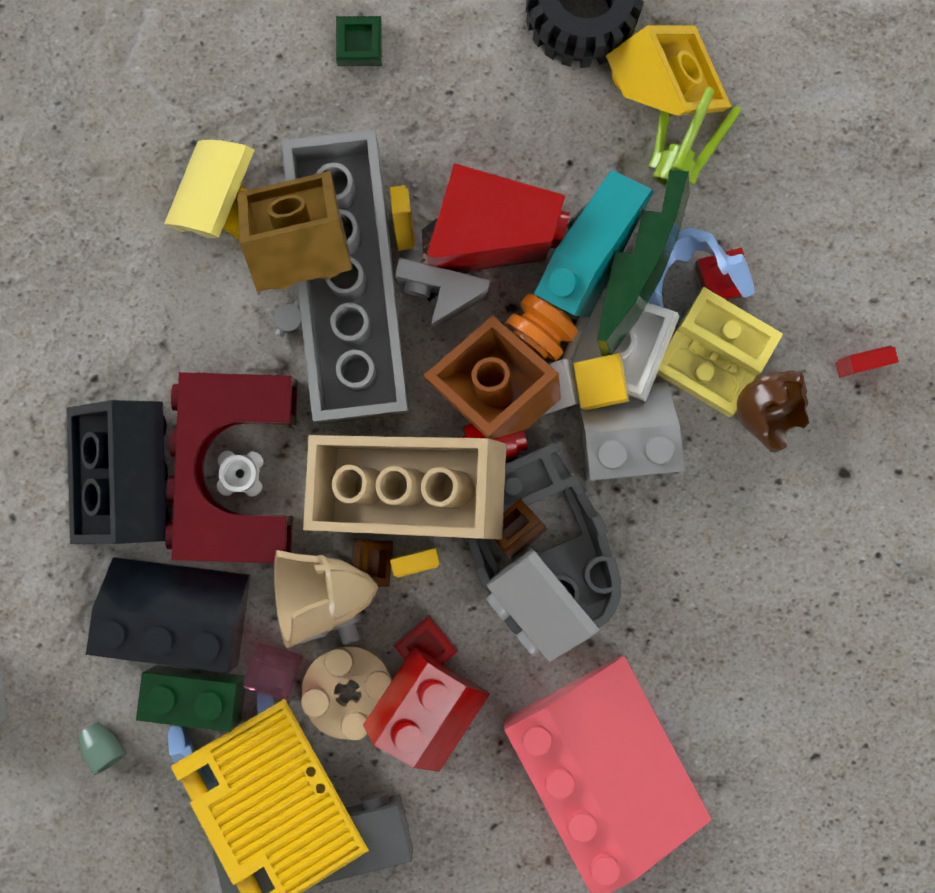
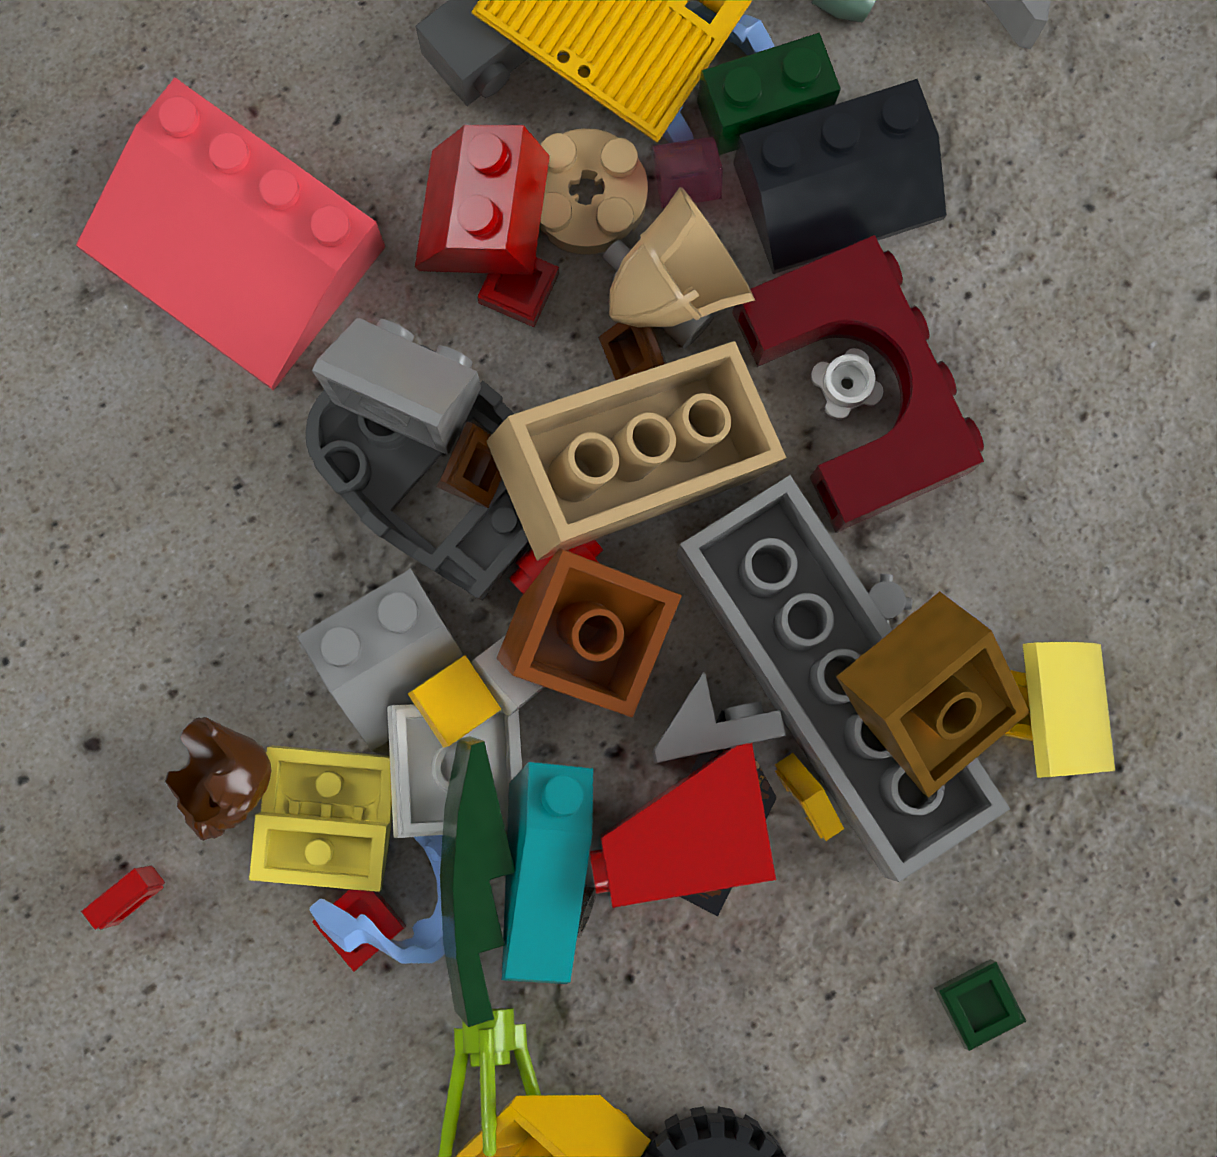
camera: 150 degrees right, 5 degrees down
(117, 472) = (992, 310): black slope -> none
(415, 562) = (581, 372): yellow tile -> none
(542, 327) = (563, 734): orange wheel -> none

